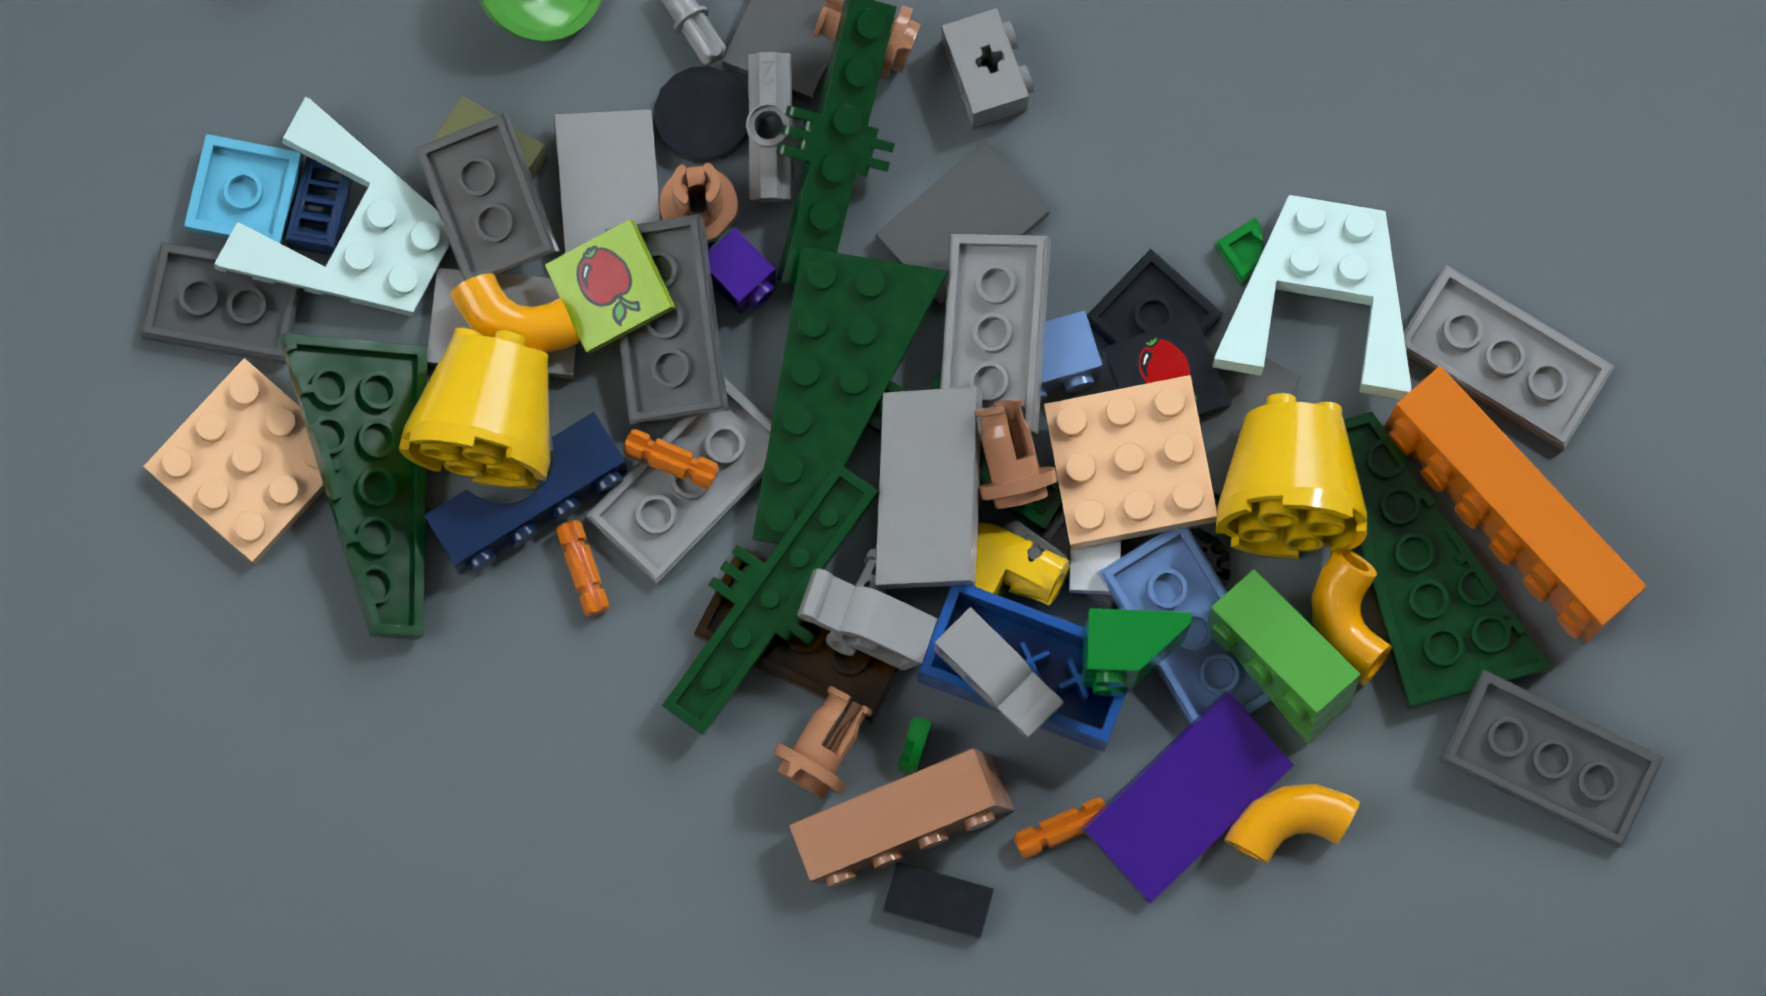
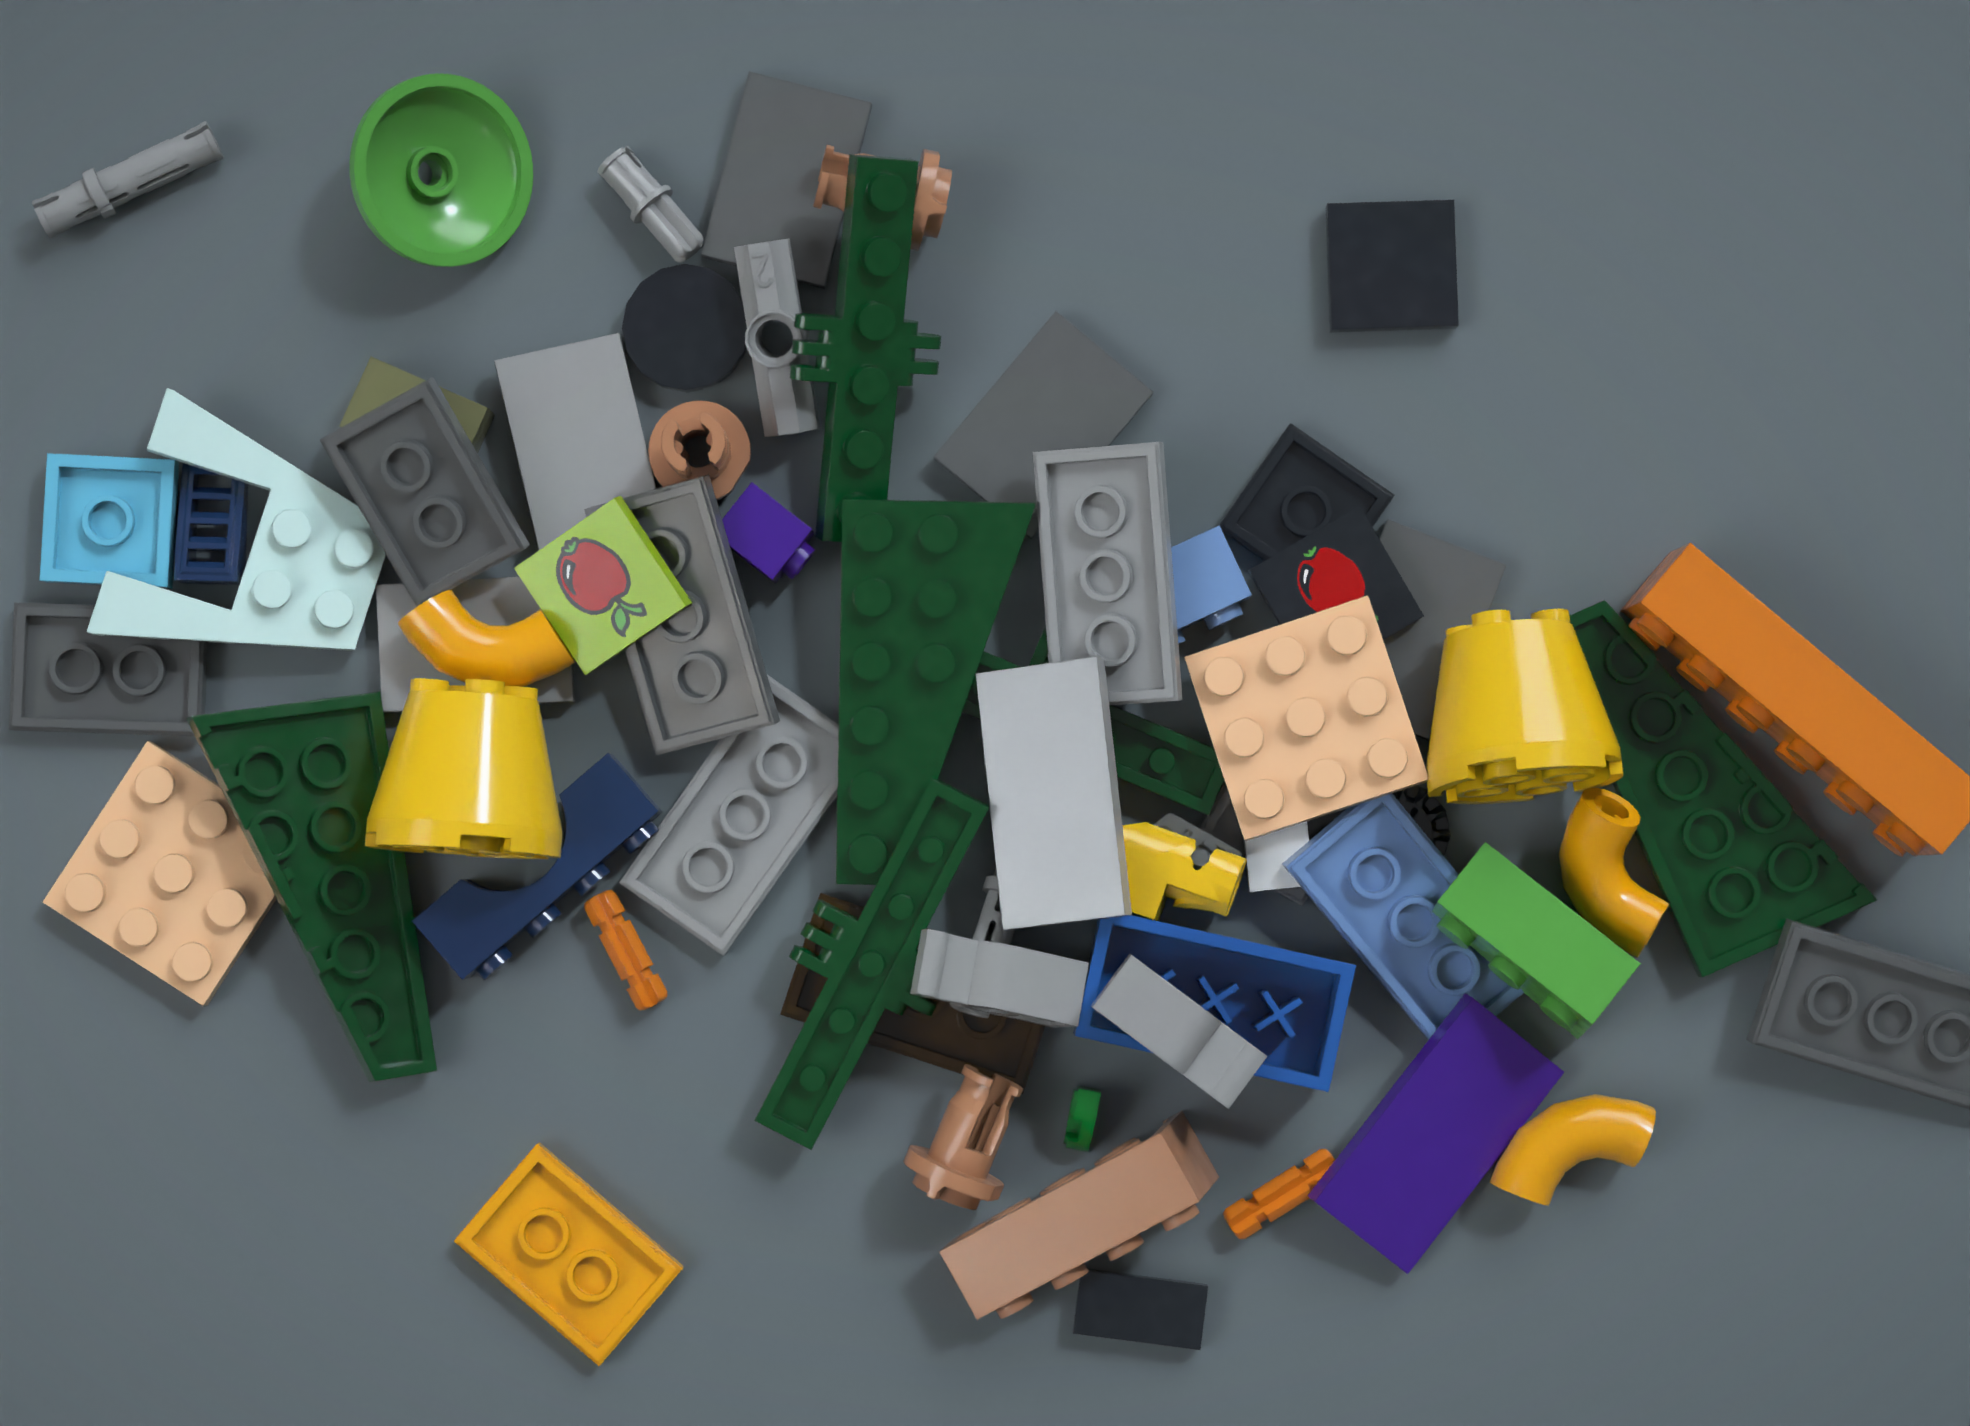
camera: 10 degrees left, 10 degrees up
(501, 793) = (568, 1253): none -> light orange tile
(670, 459) = (715, 796): orange axle -> none
(984, 94) = (1014, 192): light grey brick -> none
(1011, 457) = (1160, 759): nougat piece -> none
(1128, 645) = (1340, 980): green slope -> none
(1242, 250) = (1408, 406): green tile -> none
(1244, 145) = (1392, 266): none -> black tile
(1333, 255) = (1523, 397): light aqua wing -> none
(1505, 357) = (1762, 498): light grey tile -> none

